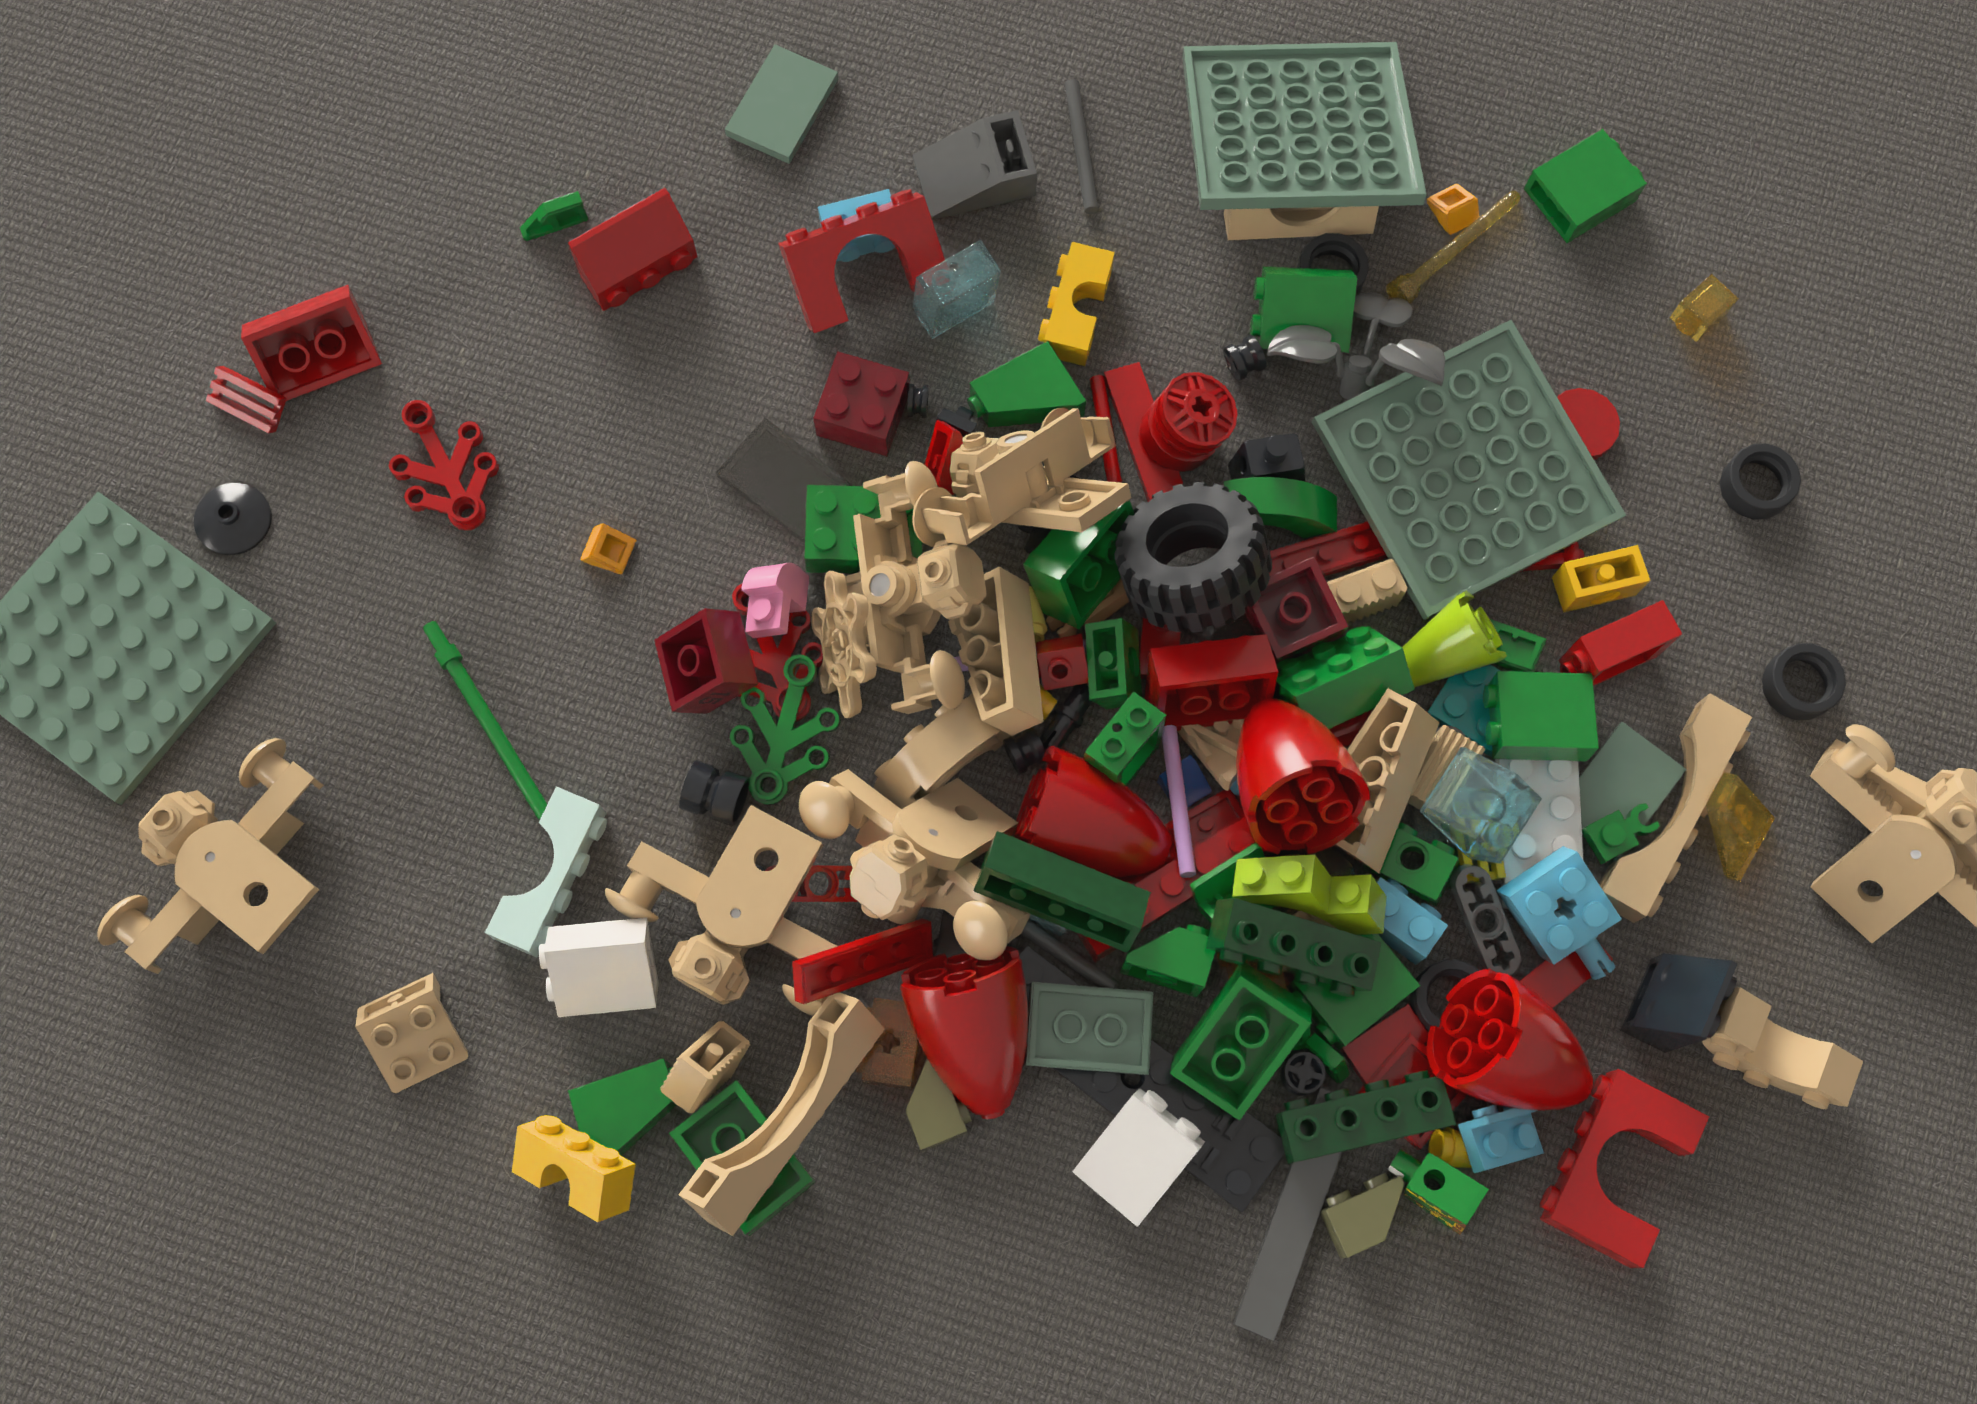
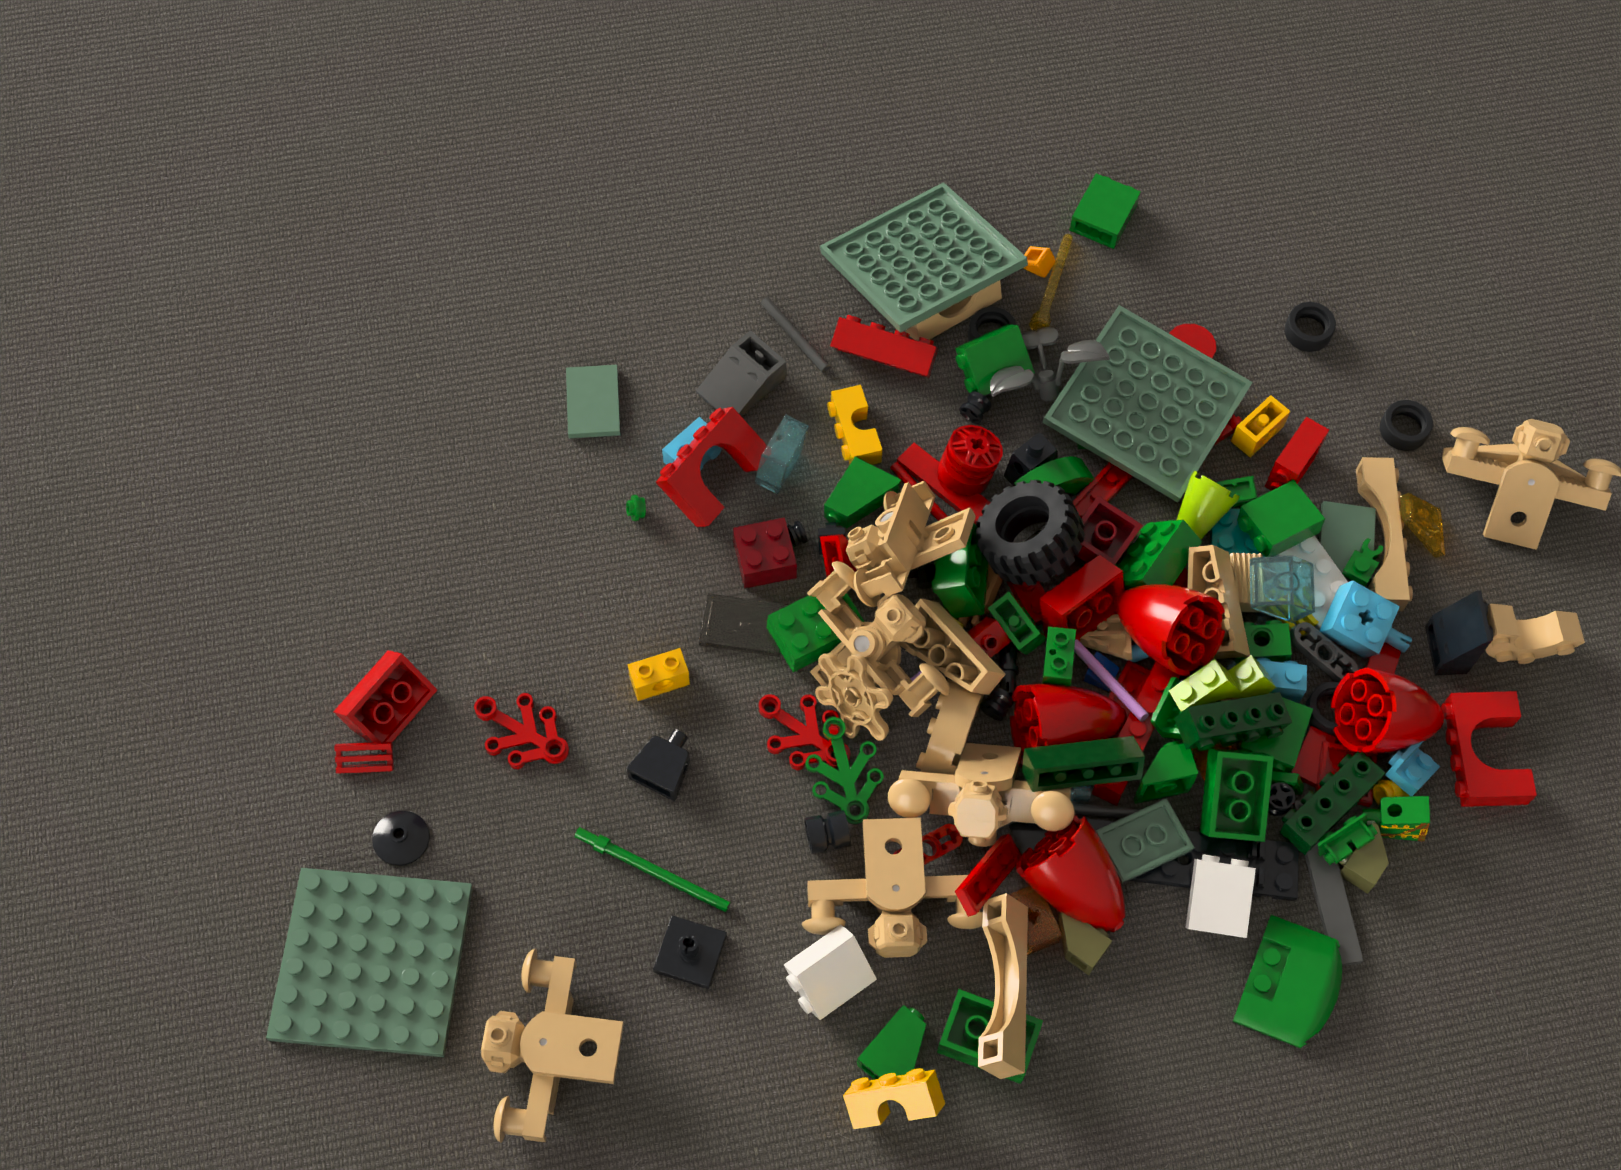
camera: 30 degrees left, 10 degrees down
(410, 1034) = (732, 1084): tan bracket -> none
(467, 845) = (690, 952): none -> black tile
(554, 216) = (493, 541): green tile -> none
(572, 826) = (758, 973): light aqua arch -> none
(576, 599) = (661, 764): none -> black torso
(608, 549) = (659, 723): light orange slope -> none
(633, 250) = (562, 535): red slope -> none
(640, 486) = (659, 674): none -> yellow brick
(705, 661) = (773, 754): dark red brick -> none
(705, 1066) = (933, 994): tan brick -> none
(746, 264) = (636, 507): none -> green plate
(773, 595) = (790, 695): bright pink brick -> none
(1163, 1313) = (1291, 983): none -> green slope
(1178, 219) = (884, 347): none -> red brick
(1364, 1175) = (1336, 843): none -> green hinge
(1368, 590) = (1138, 499): tan brick -> none
(1703, 308) = (1216, 246): clear yellow brick -> none

